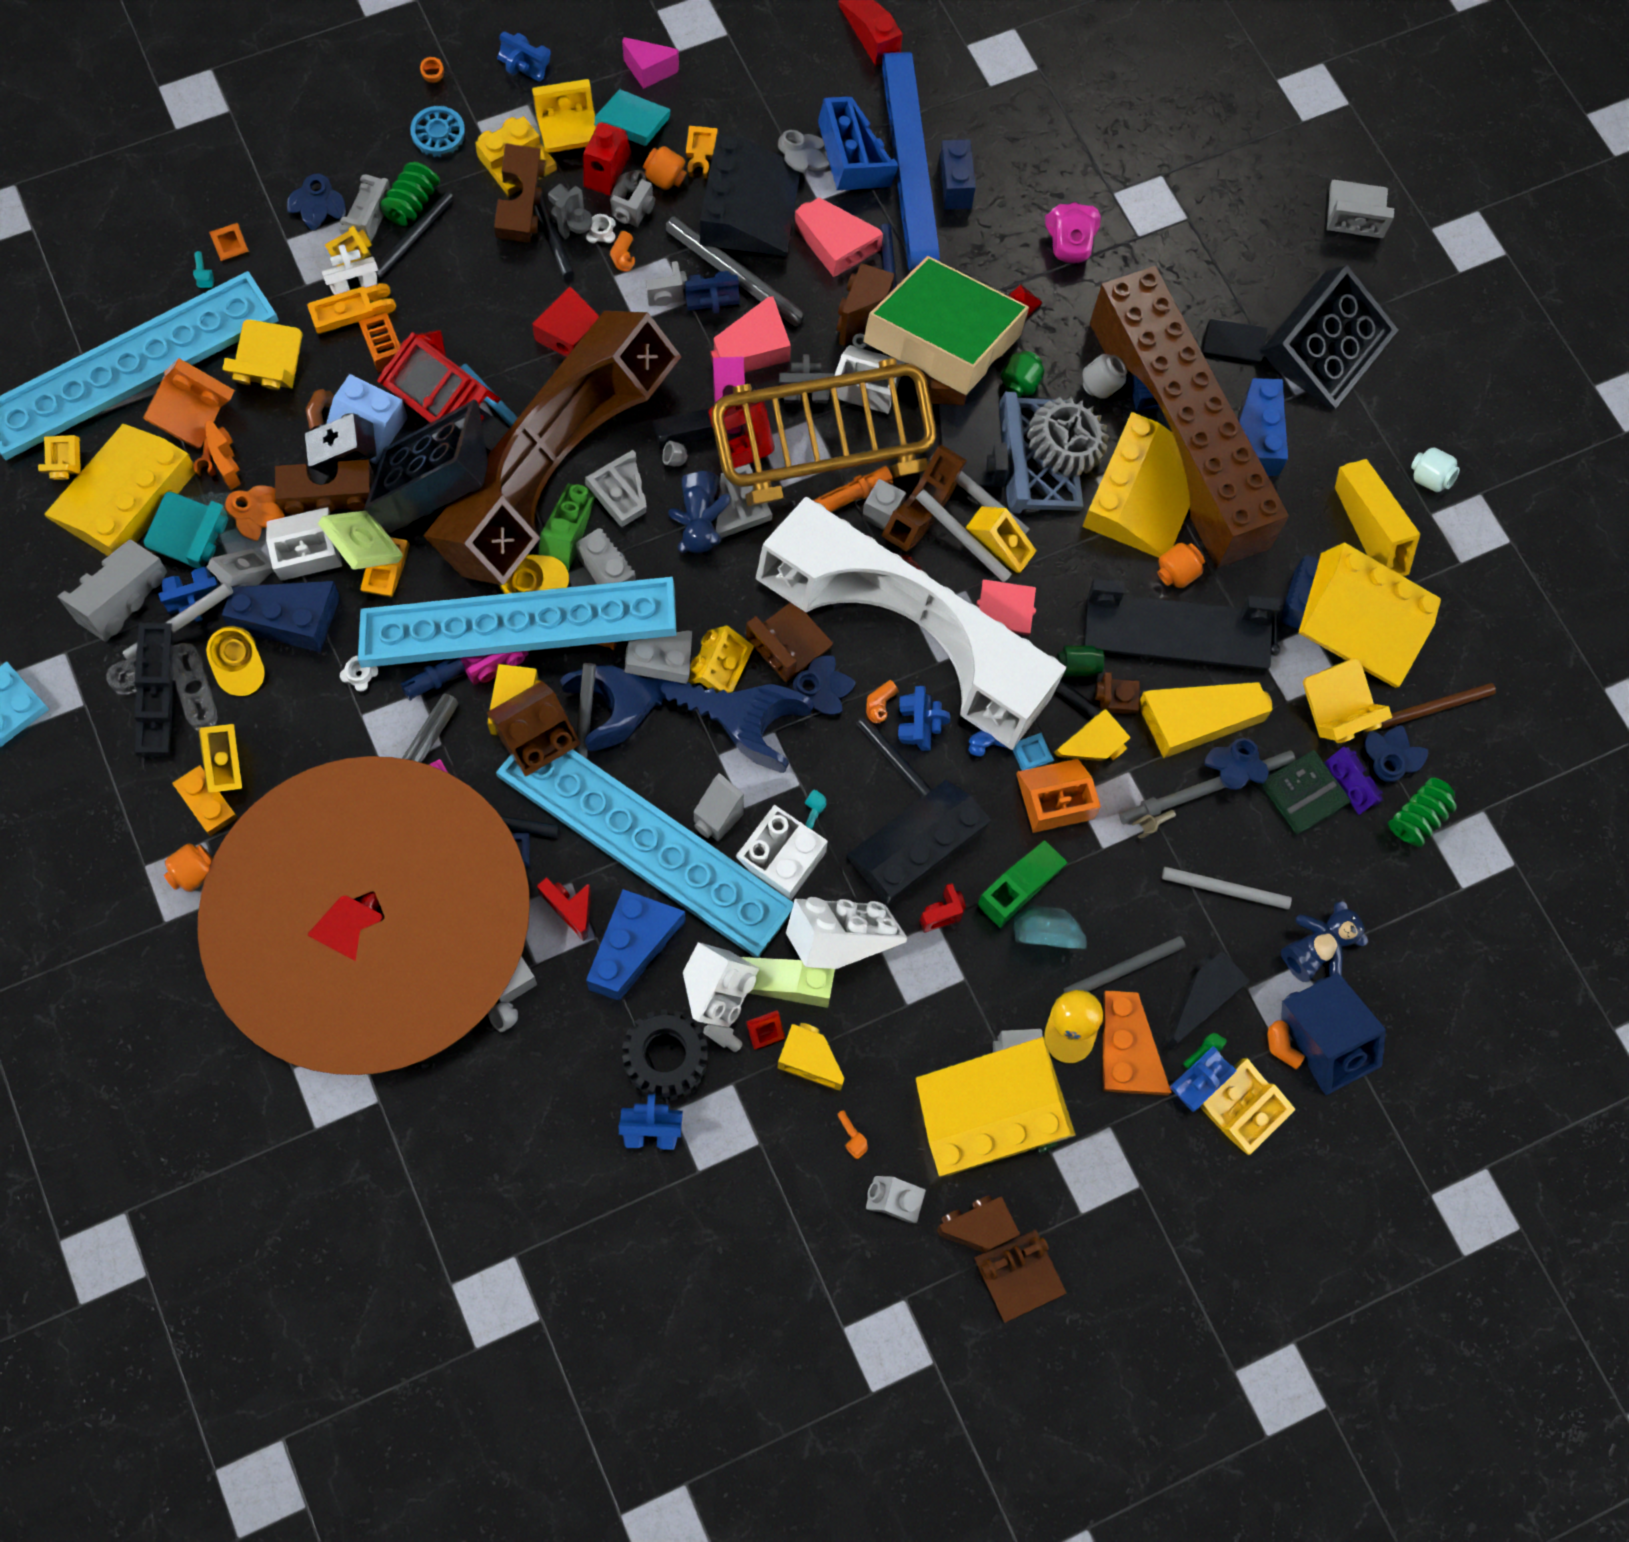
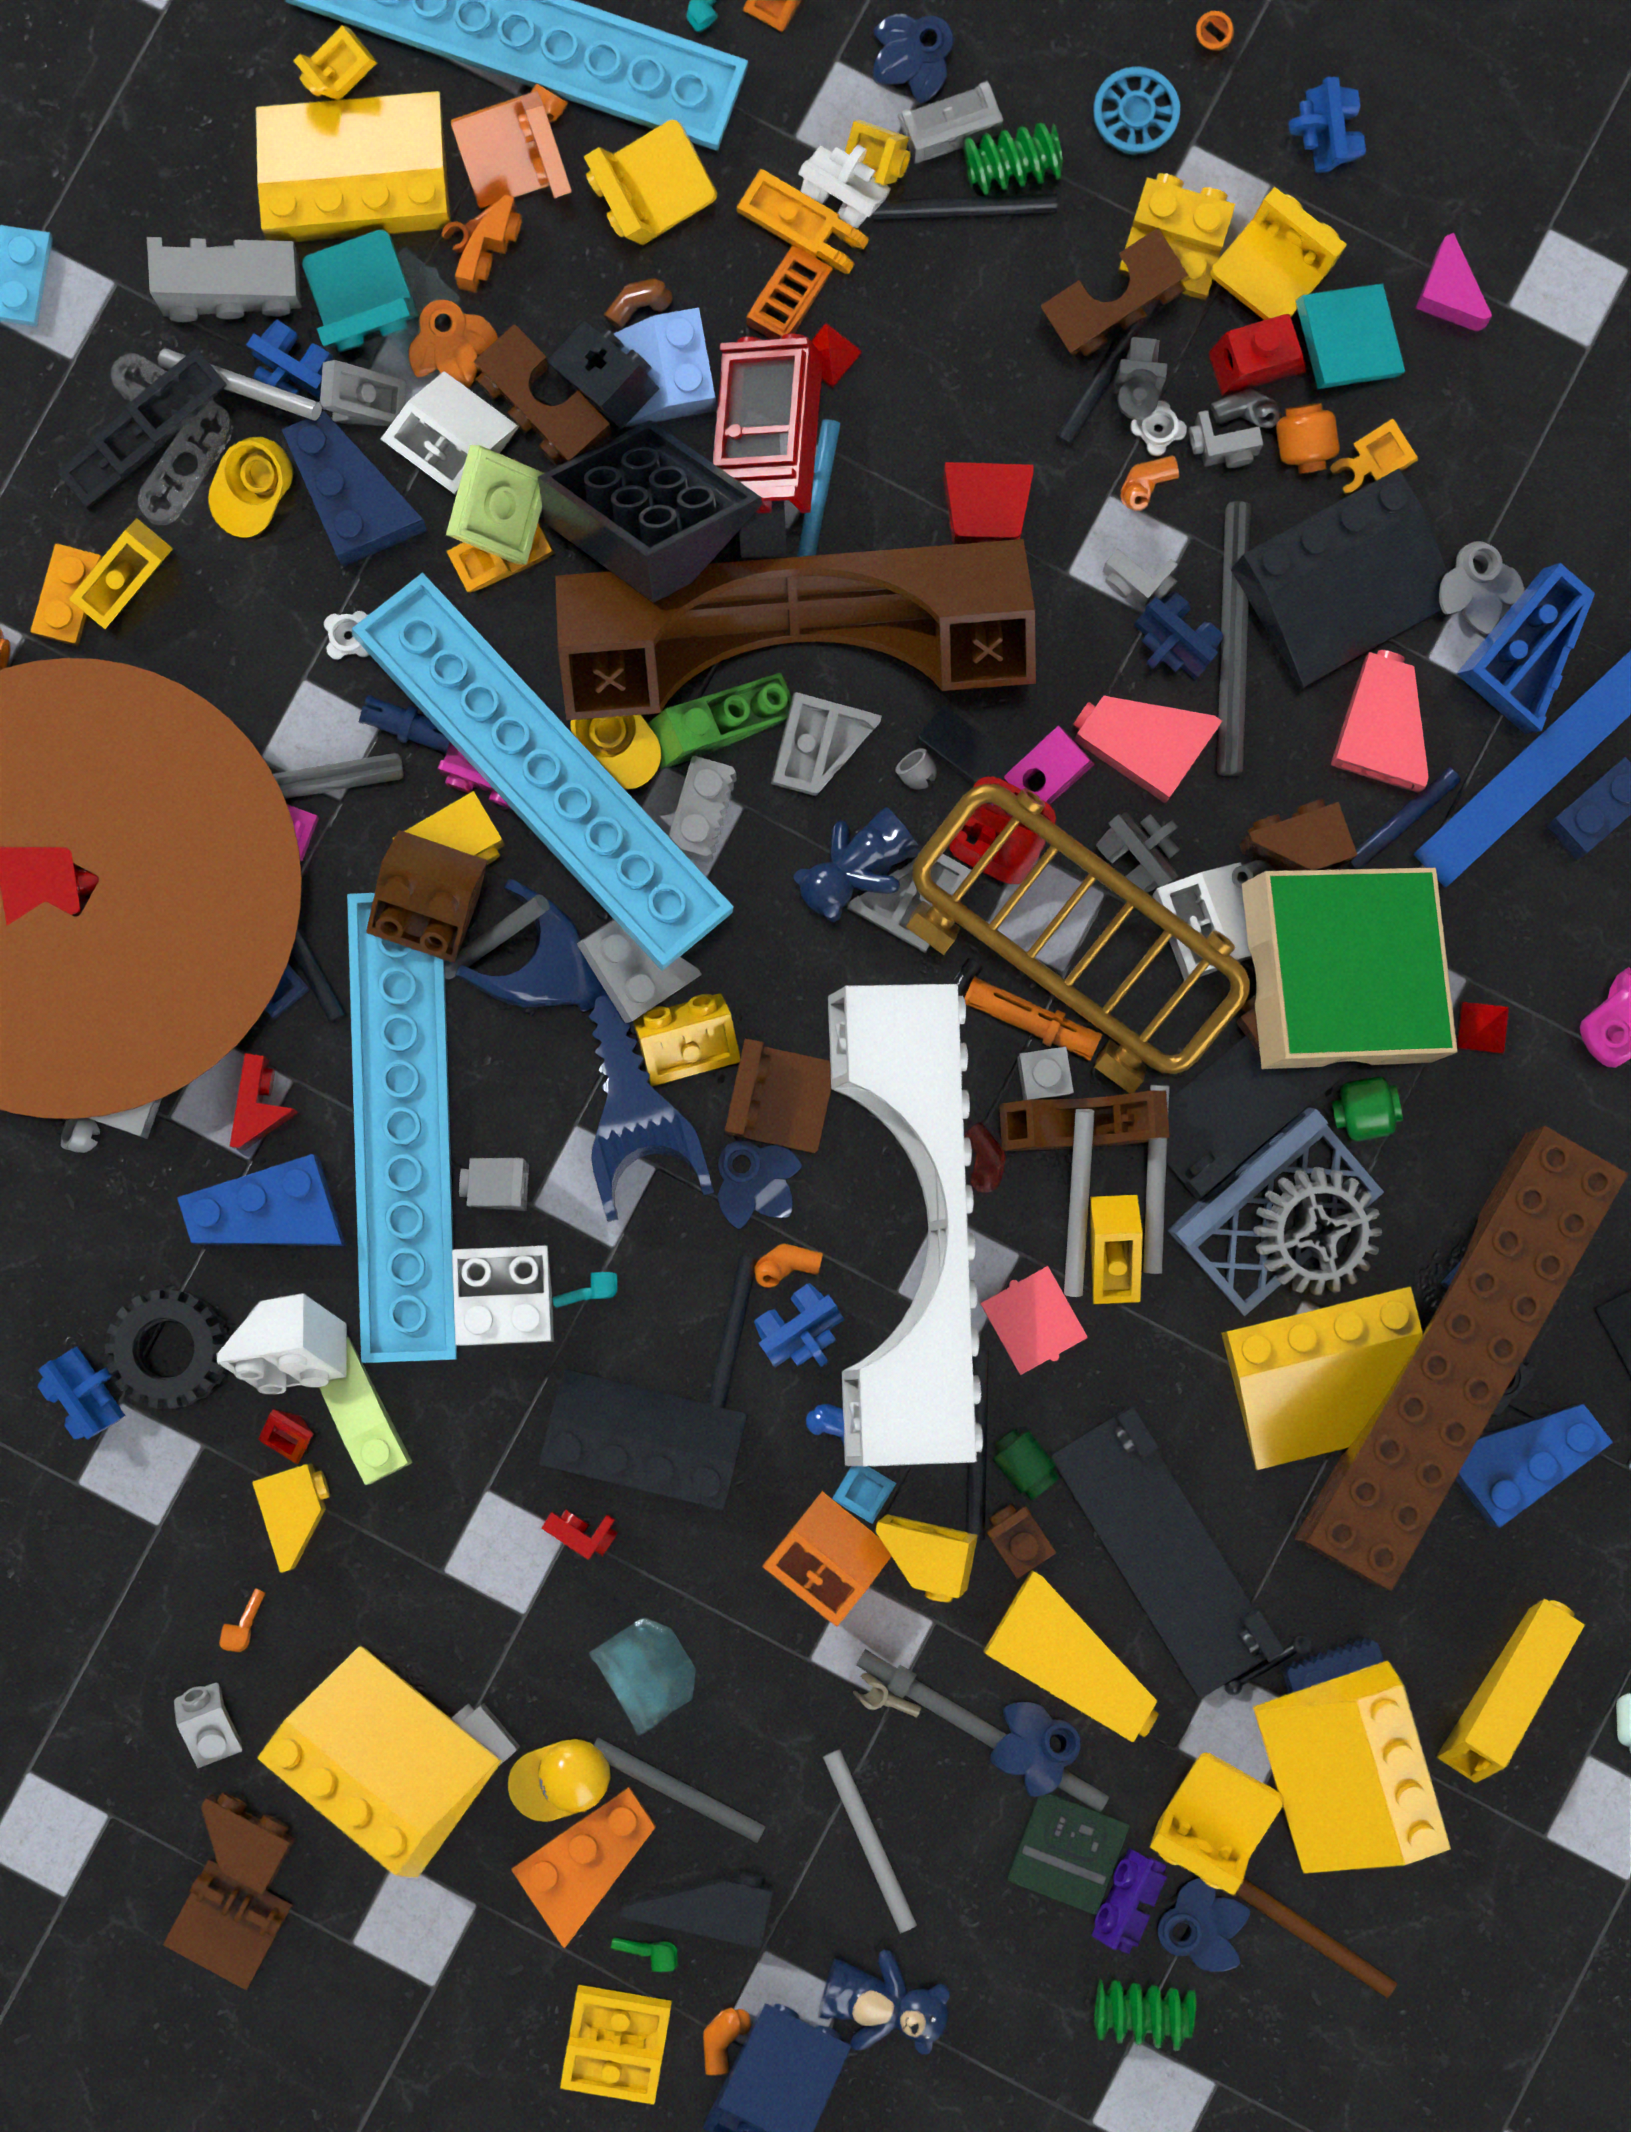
camera: 55 degrees right, 15 degrees up
(723, 1036) = (238, 1396): light grey bar -> none
(841, 931) = (458, 1439): white slope -> none
(1021, 883) = (686, 1599): green slope -> none
(1104, 376) = (1445, 1213): light grey head -> none
(1181, 565) = (1252, 1494): orange head -> none
(1202, 1079) = (603, 1975): blue hips -> none

